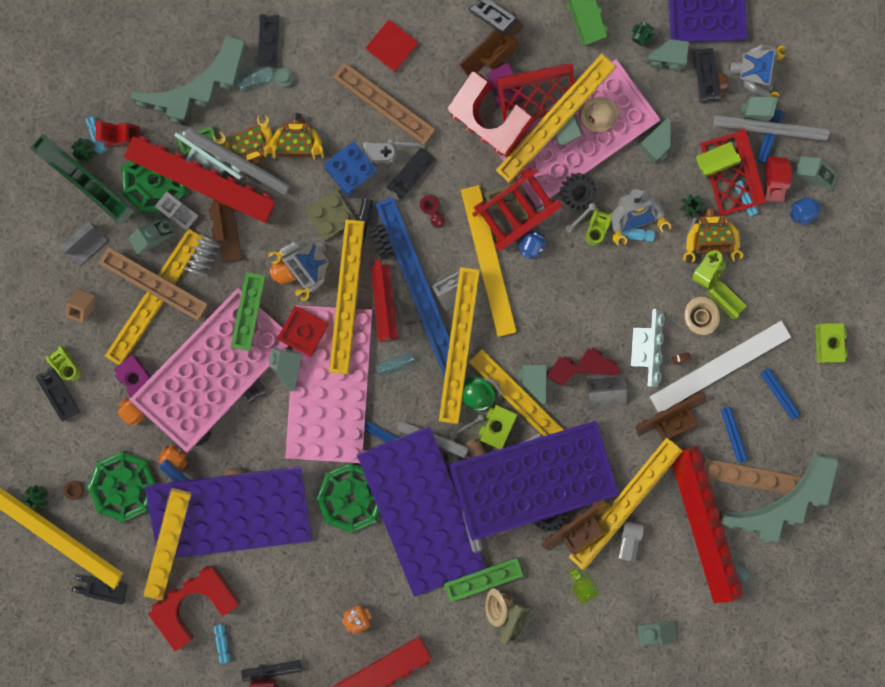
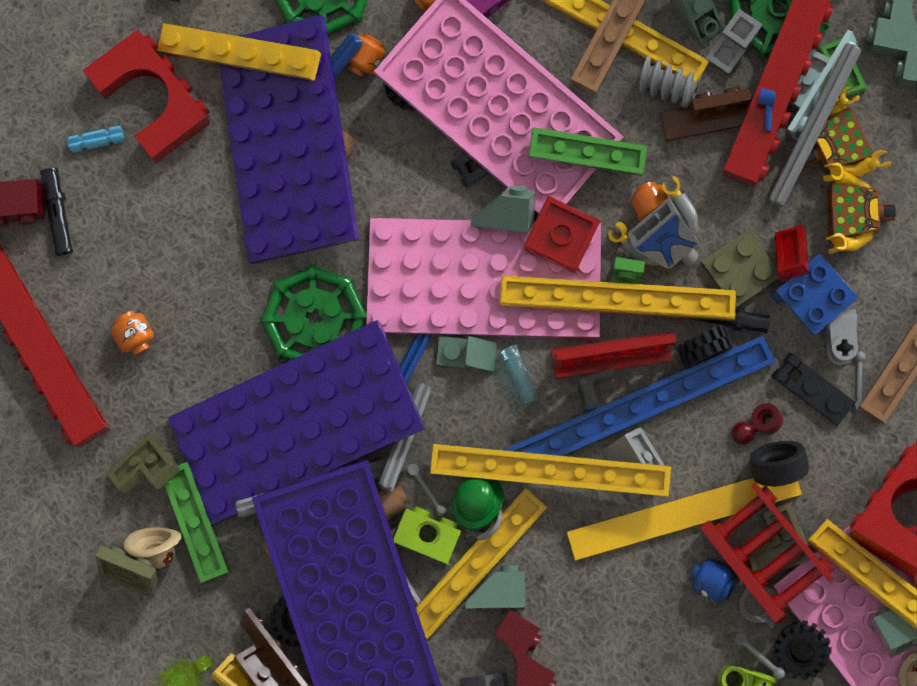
camera: 95 degrees right, 5 degrees down
(218, 191) = (767, 98): none -> blue hand
(321, 181) = (791, 252): none -> red tile
(329, 289) = (627, 271): none -> bright green bracket
(379, 397) = (466, 353): none -> sand green slope
(442, 613) = (143, 460): none -> olive plate
(459, 198) = (779, 463): none -> black tyre

